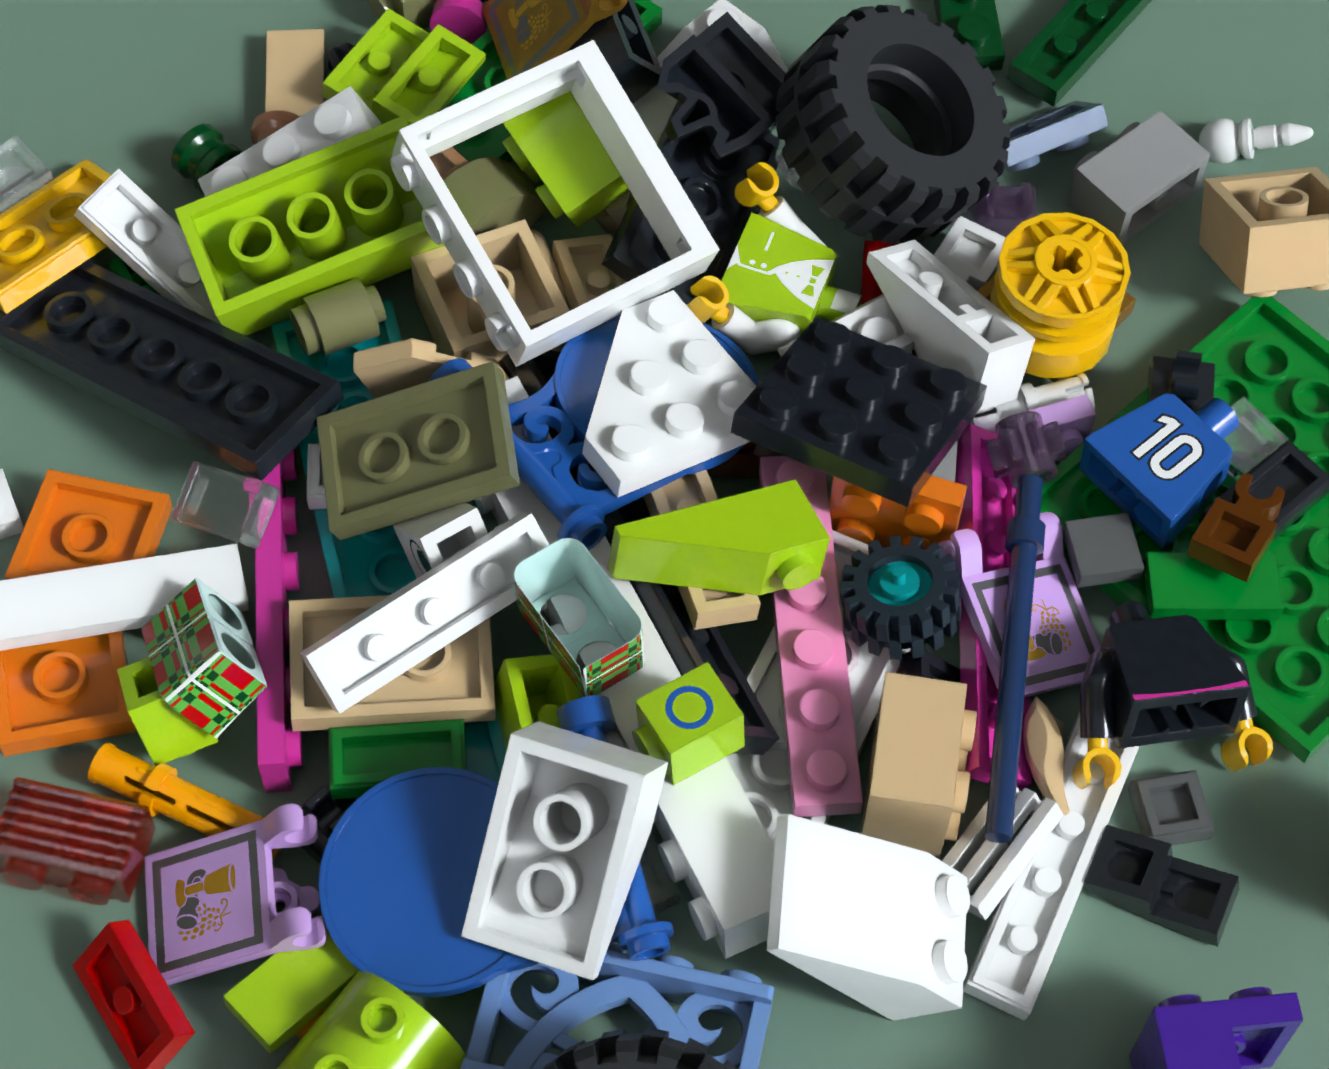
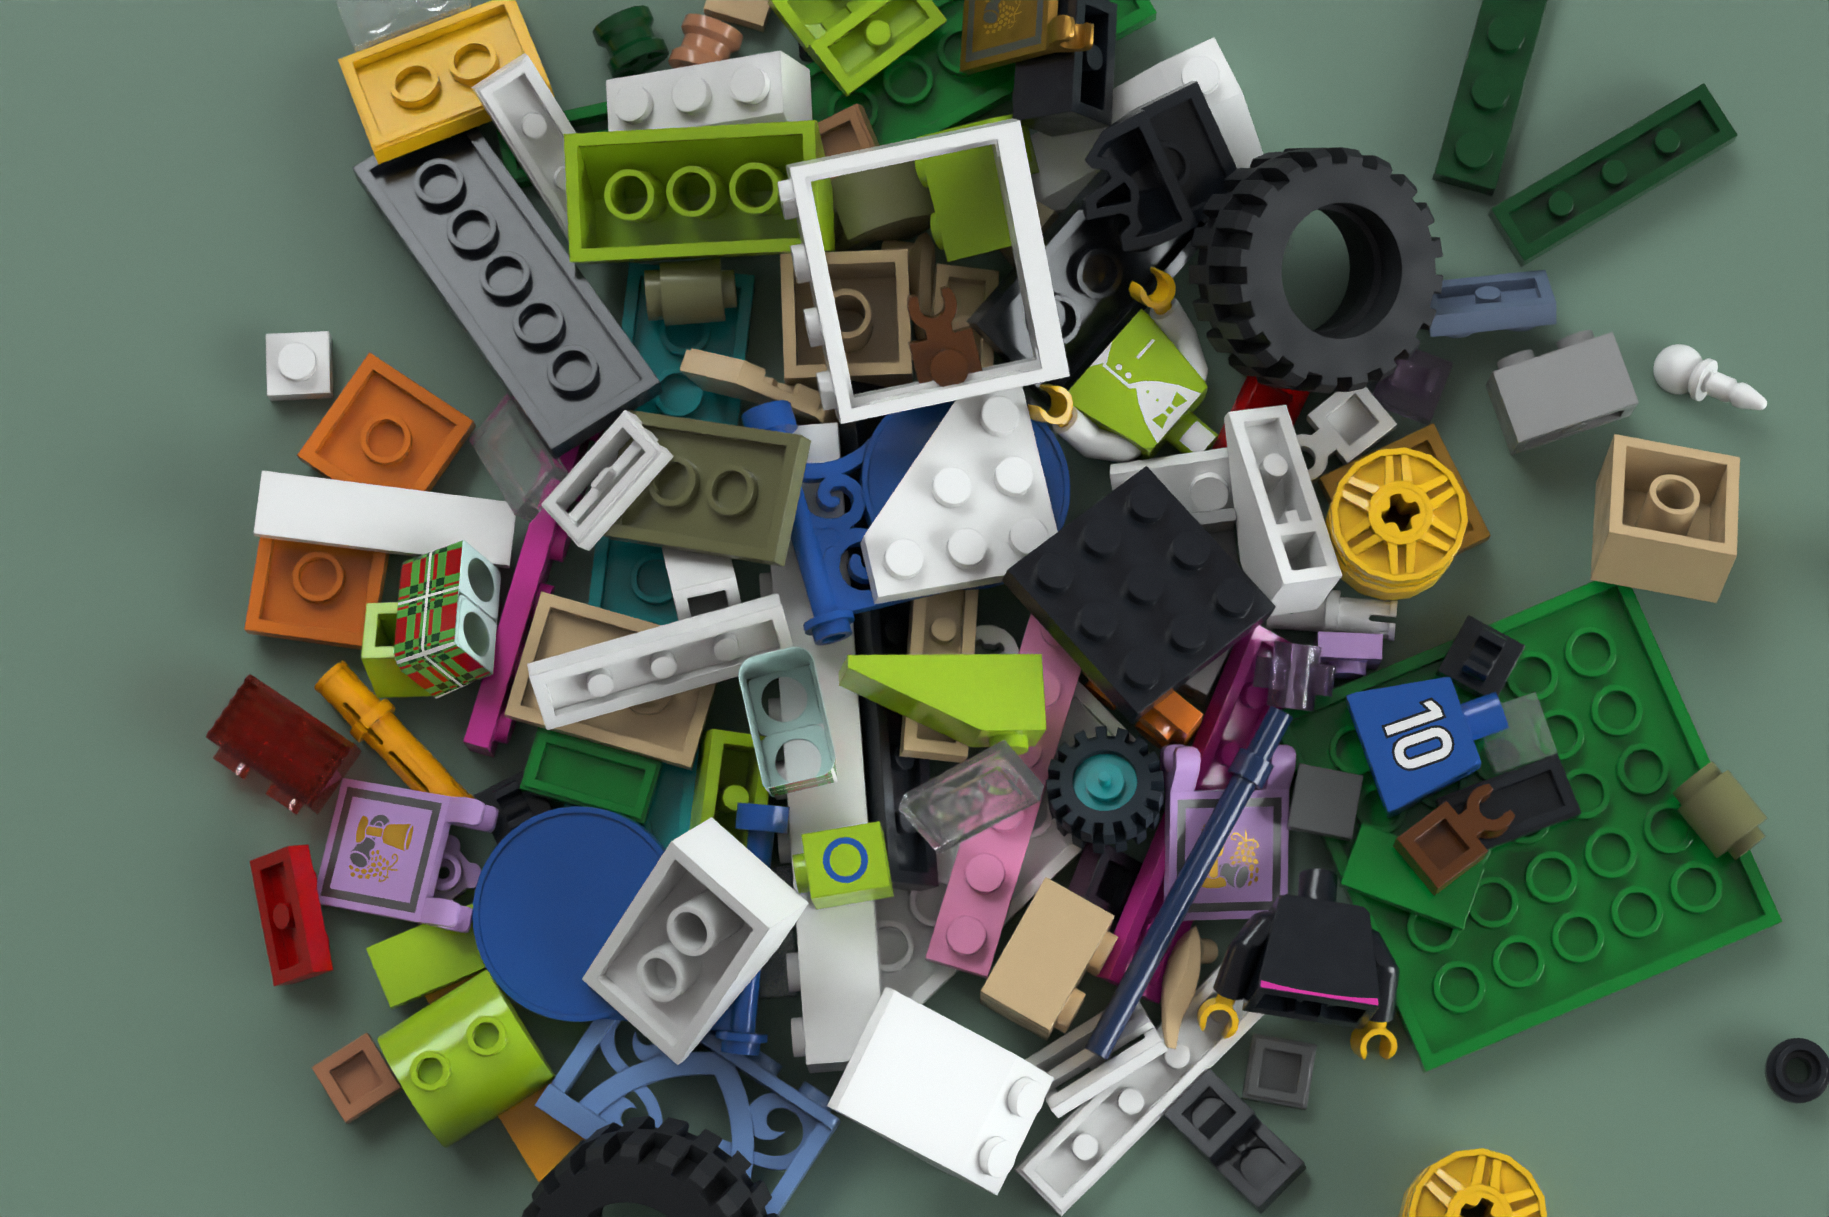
camera: 25 degrees right, 20 degrees up
(326, 480) = (614, 487): none -> white tile
(590, 272) = (945, 353): none -> reddish brown plate
(781, 633) = (971, 797): none -> clear plate

